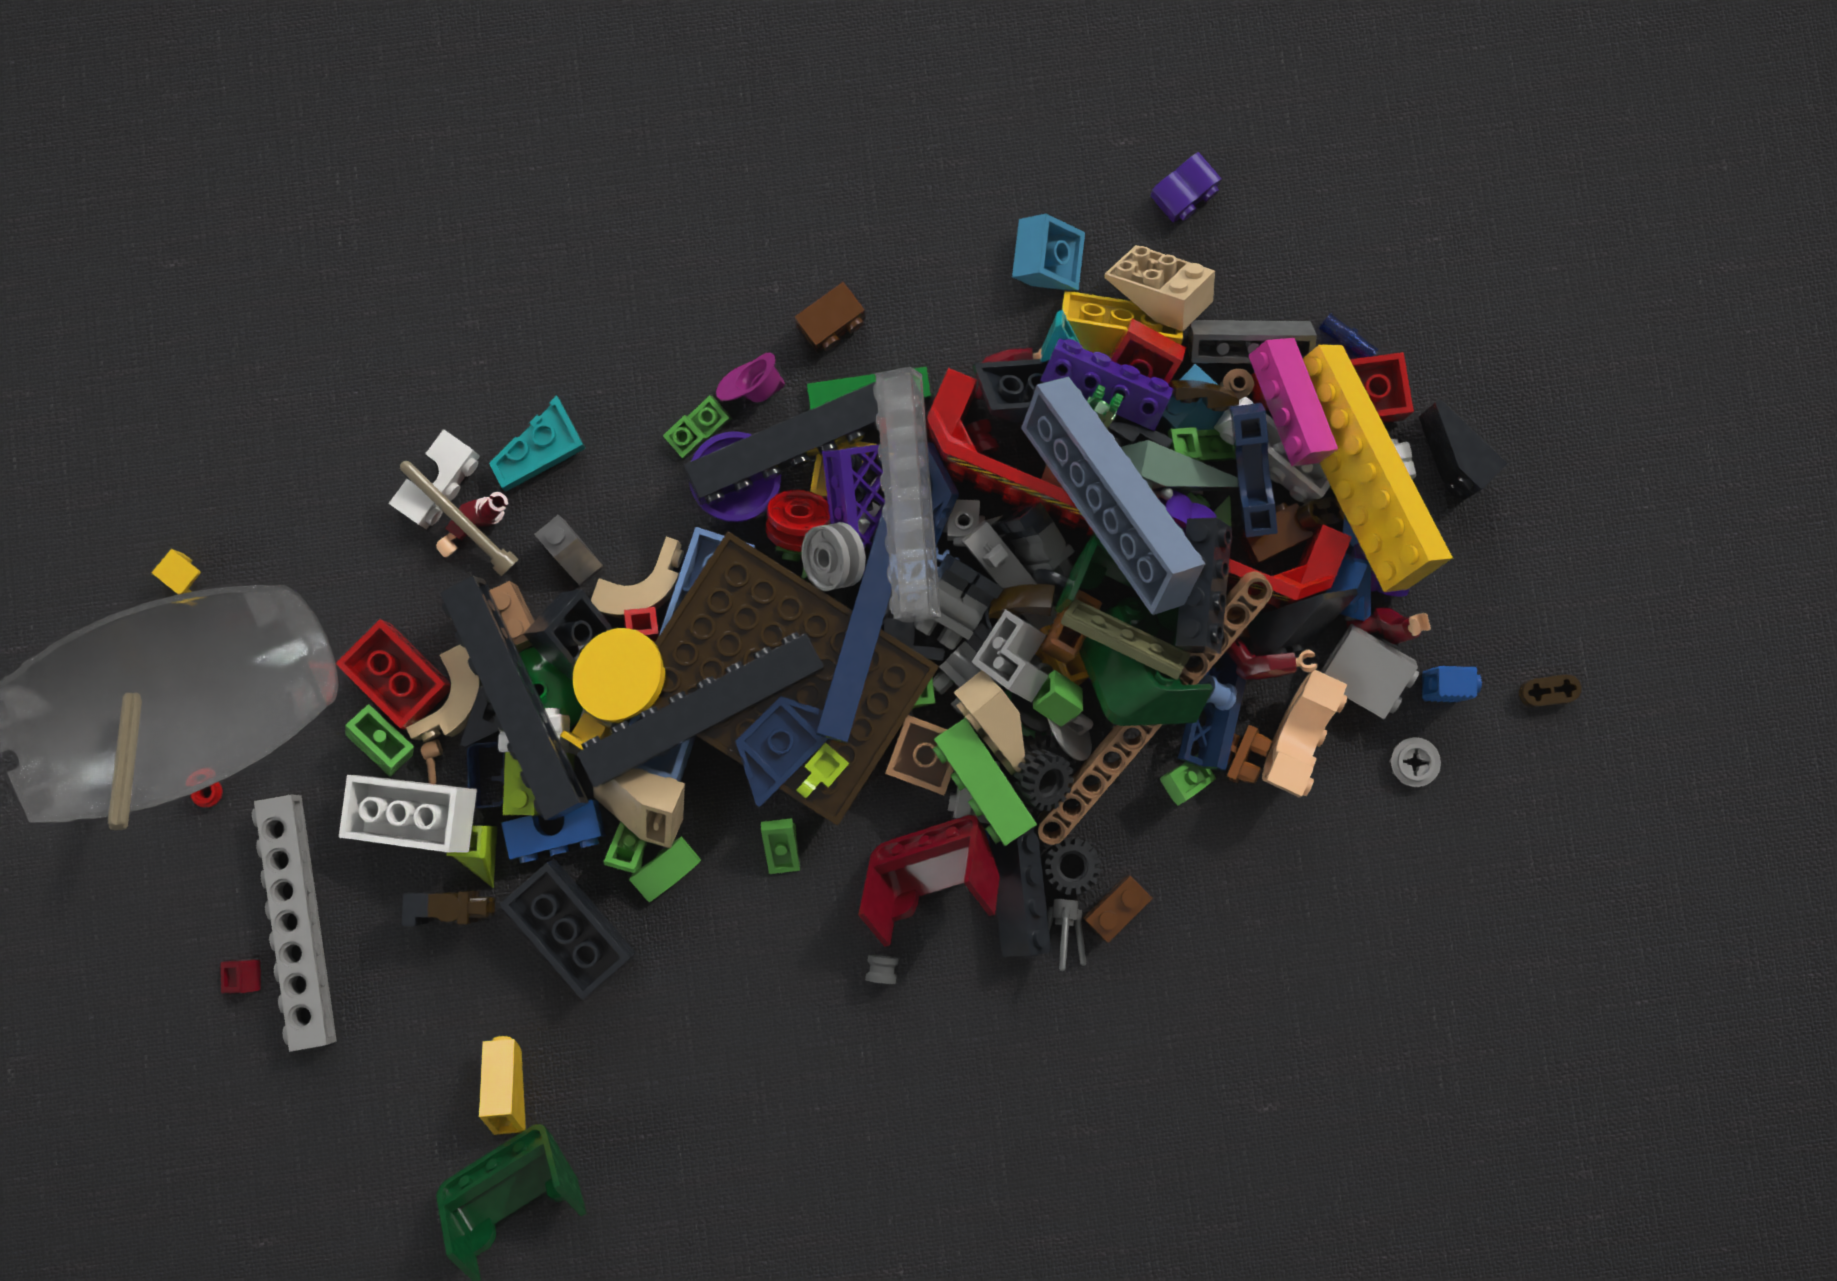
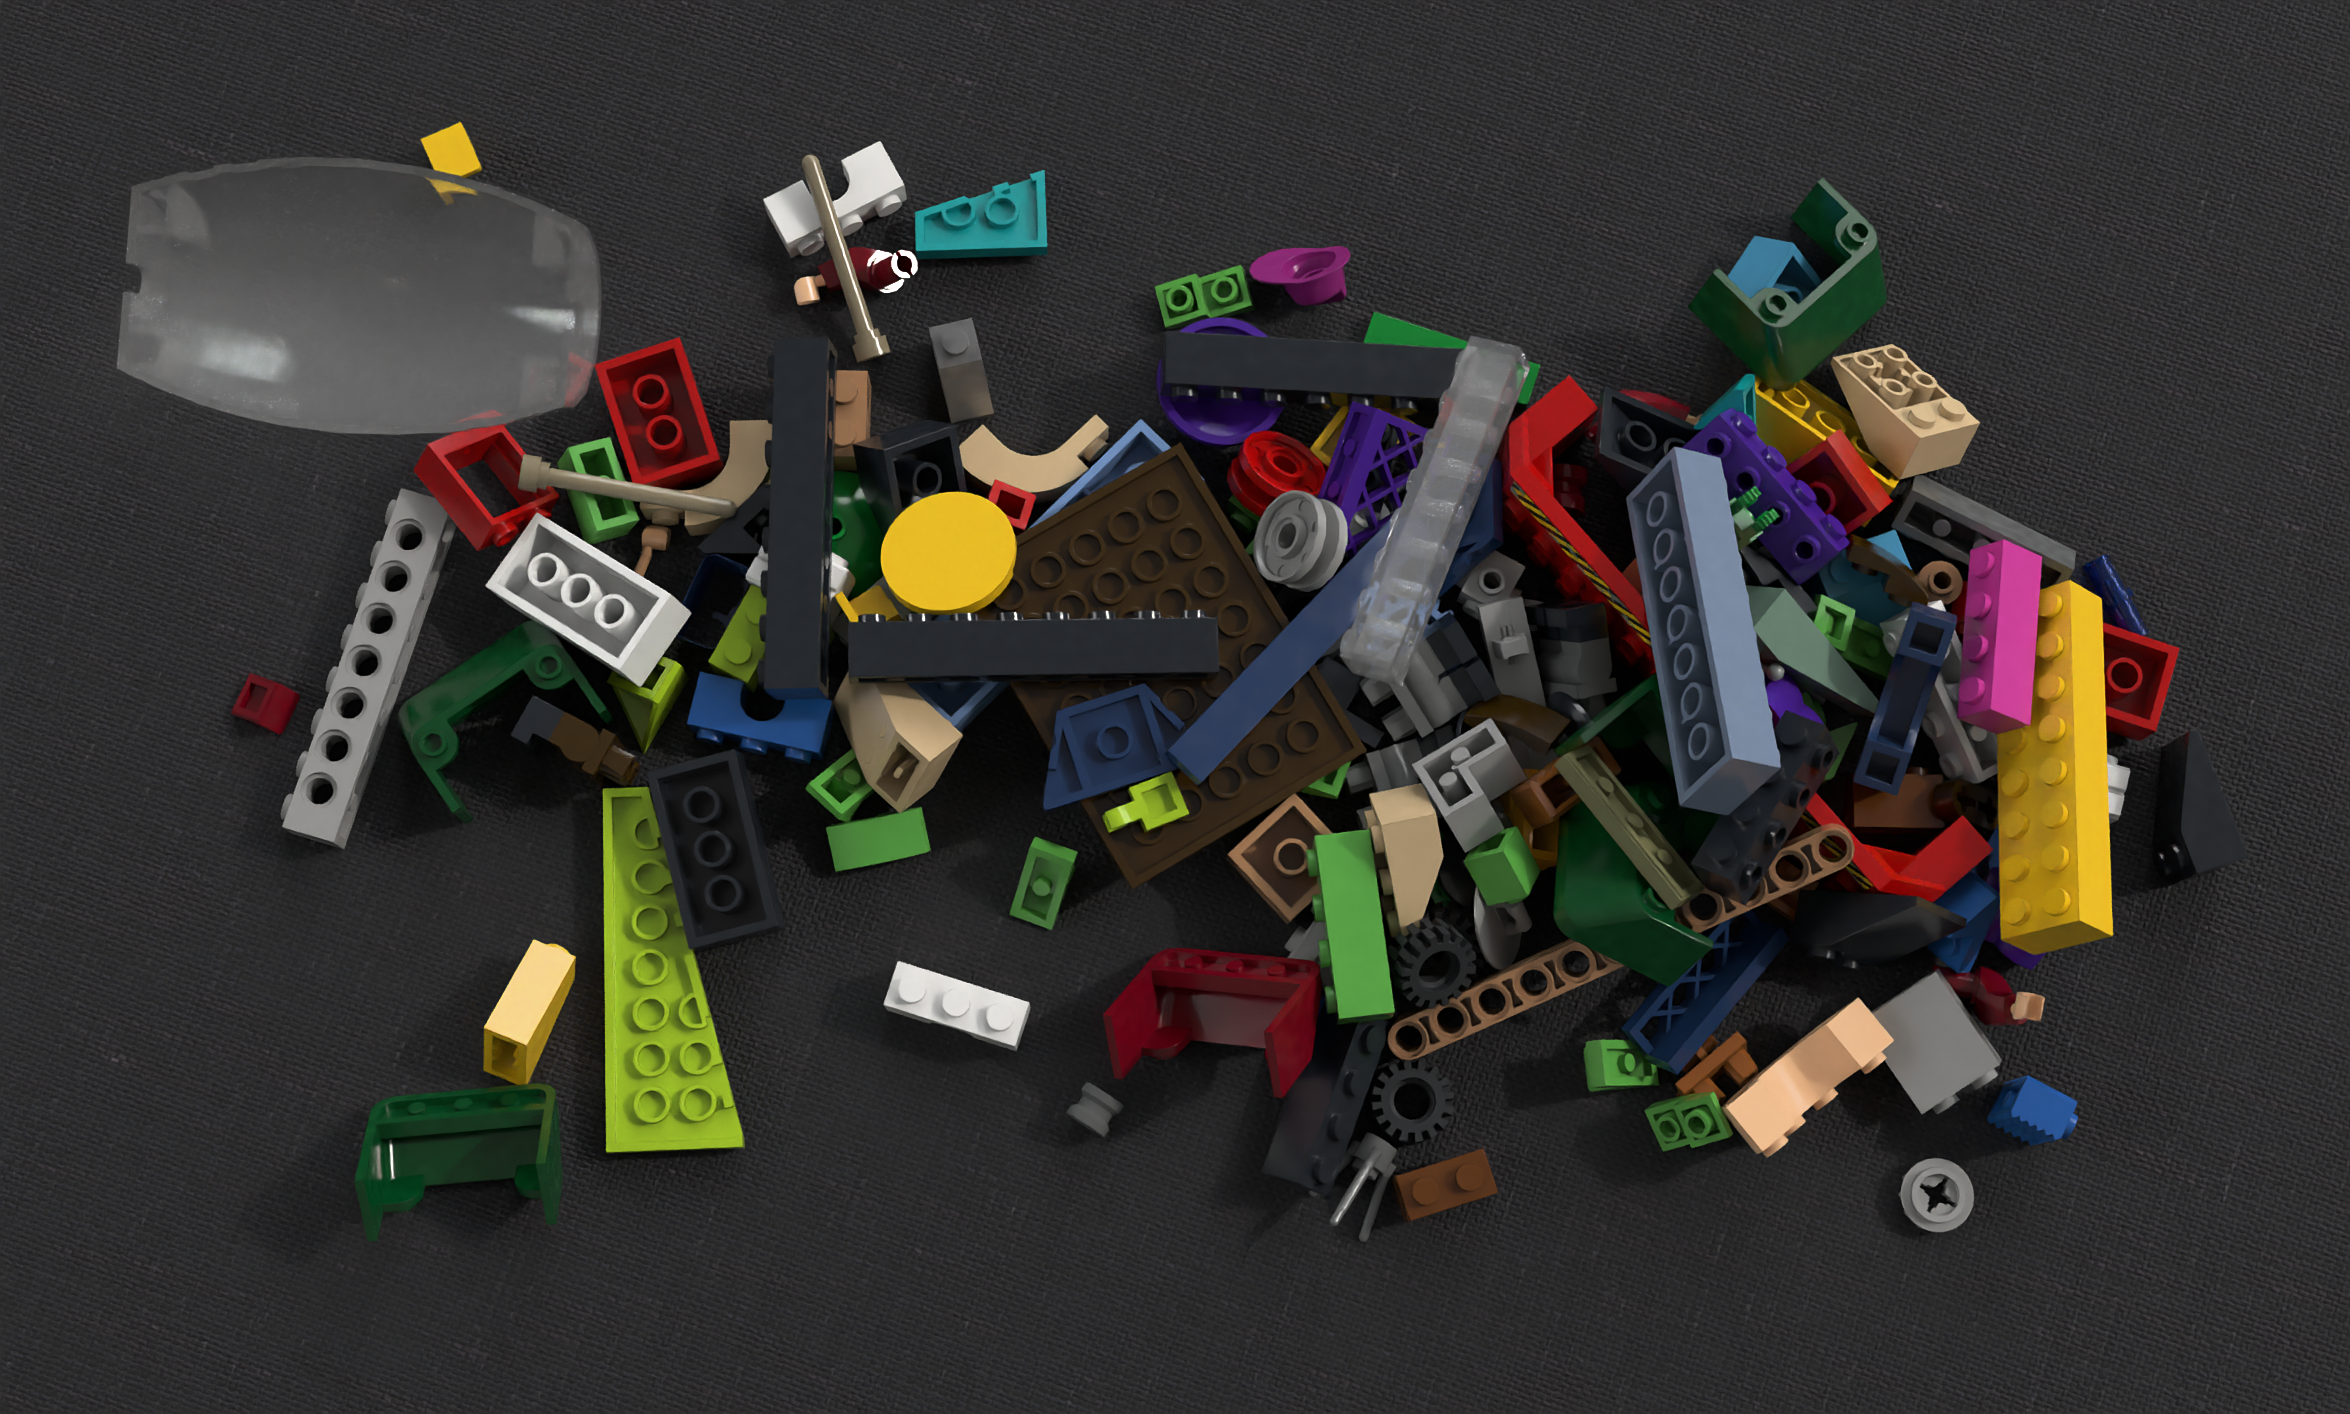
camera: 20 degrees right, 5 degrees down
(125, 762) = (271, 353): dark tan axle -> none
(200, 800) = (334, 441): red plate -> none
(322, 752) = (504, 456): none -> red window
(335, 752) = (539, 475): none -> dark tan piece
(384, 866) = (433, 712): none -> dark green windscreen
(593, 1061) = (660, 1041): none -> lime wing
(765, 949) = (957, 1005): none -> white arch
(831, 318) = (1446, 243): reddish brown brick -> none
(1061, 276) = (1790, 339): none -> dark green windscreen
(1186, 187) = (1994, 302): dark purple brick -> none
(1222, 695) = (1717, 971): medium blue bush -> none
(1246, 794) = (1688, 1120): none -> bright green slope
(1266, 666) = (1797, 961): dark red arm -> none
(1550, 697) = (2160, 1201): dark brown beam -> none

